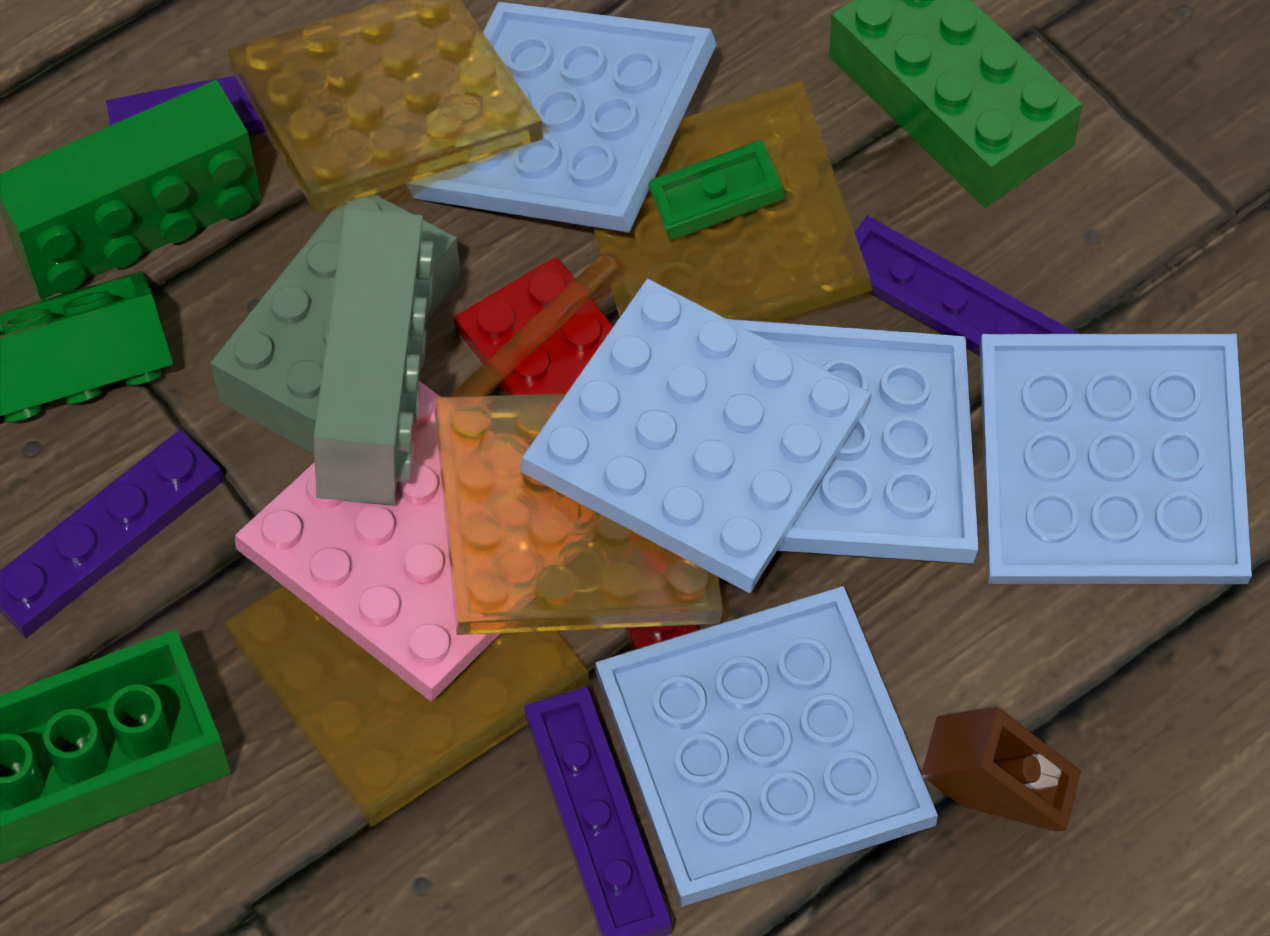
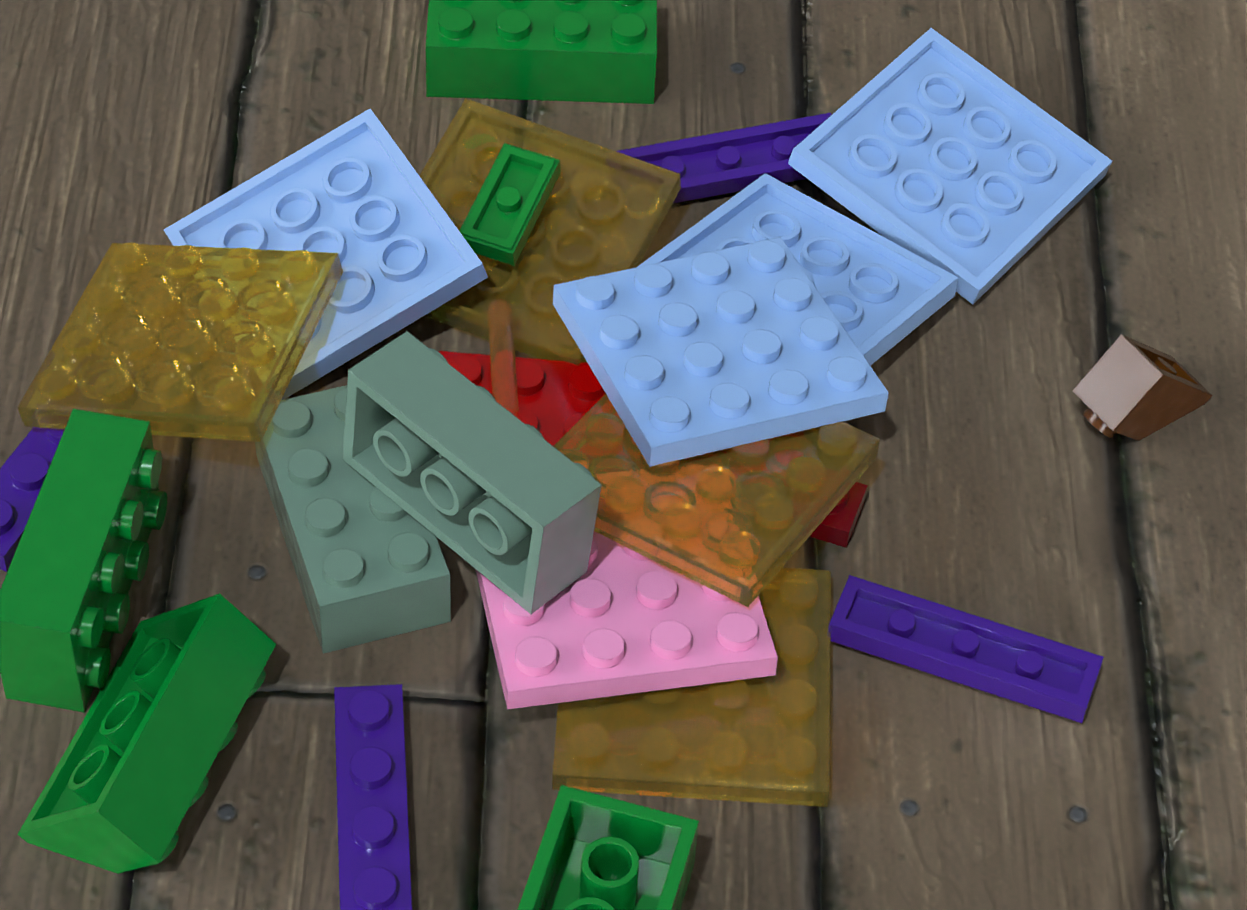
camera: 55 degrees left, 10 degrees down
(764, 745) = (992, 510): light blue plate -> none

